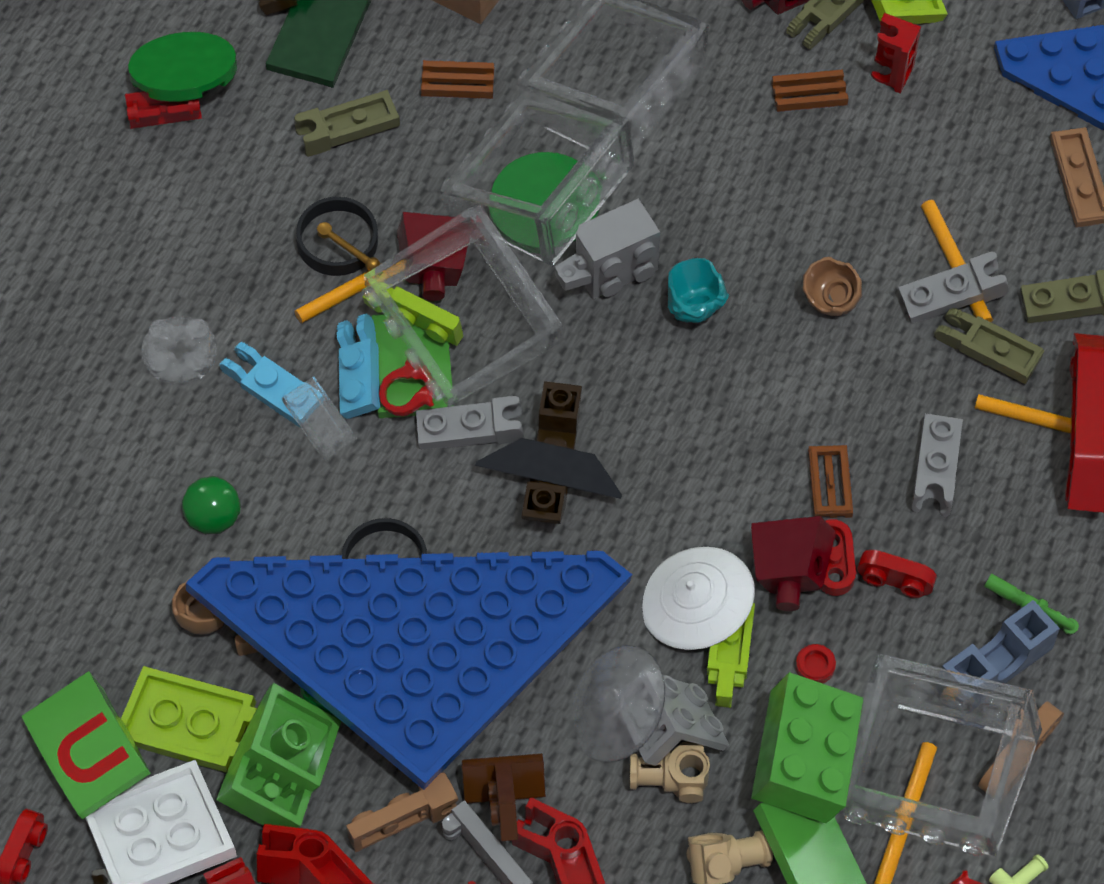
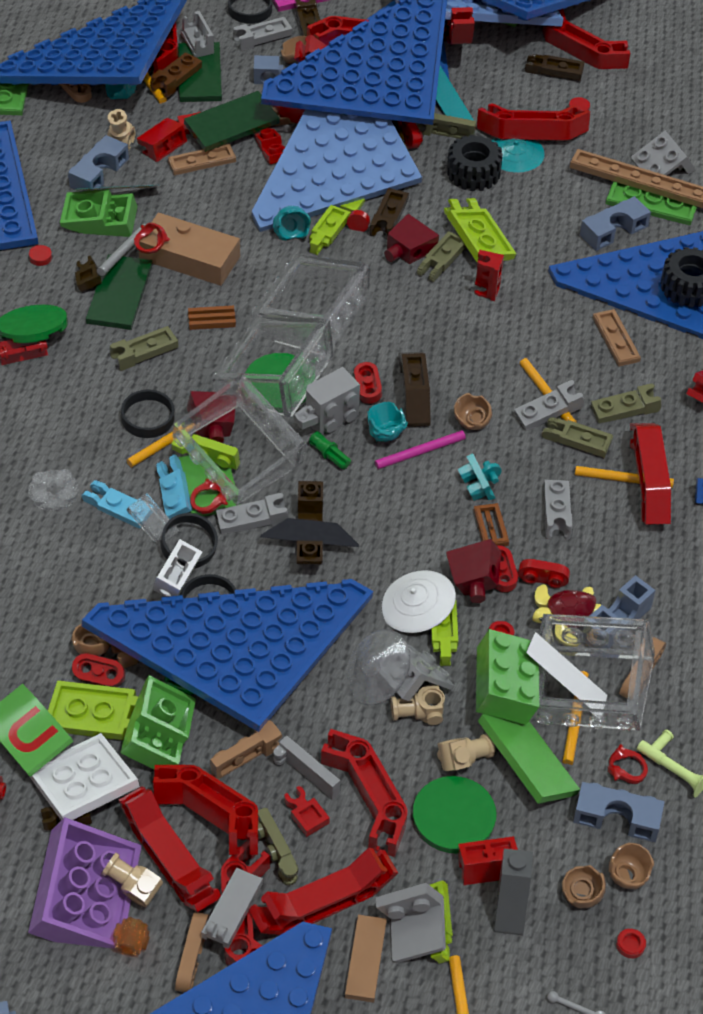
camera: 10 degrees left, 10 degrees down
(206, 658) = (99, 670): none -> red plate
(211, 505) = (88, 579): green hair -> none
(325, 231) = (140, 409): pearl gold hinge -> none
(338, 515) = (174, 575): none -> white torso
(375, 422) = (190, 518): none -> black tyre
(500, 783) = (310, 724): reddish brown bracket -> none
(603, 327) = (329, 450): none -> green axle
(679, 220) = (368, 384): none -> red plate
(742, 340) = (420, 449): none -> dark pink bar
(750, 235) = (416, 387): none -> dark brown slope
(809, 84) = (436, 302): dark orange tile -> none
(818, 386) = (481, 487): none -> teal hips
(899, 750) = (563, 670): none -> white sticker
(921, 633) = (564, 603): none -> dark red animal
(1020, 598) = (616, 575): bright green piece -> none

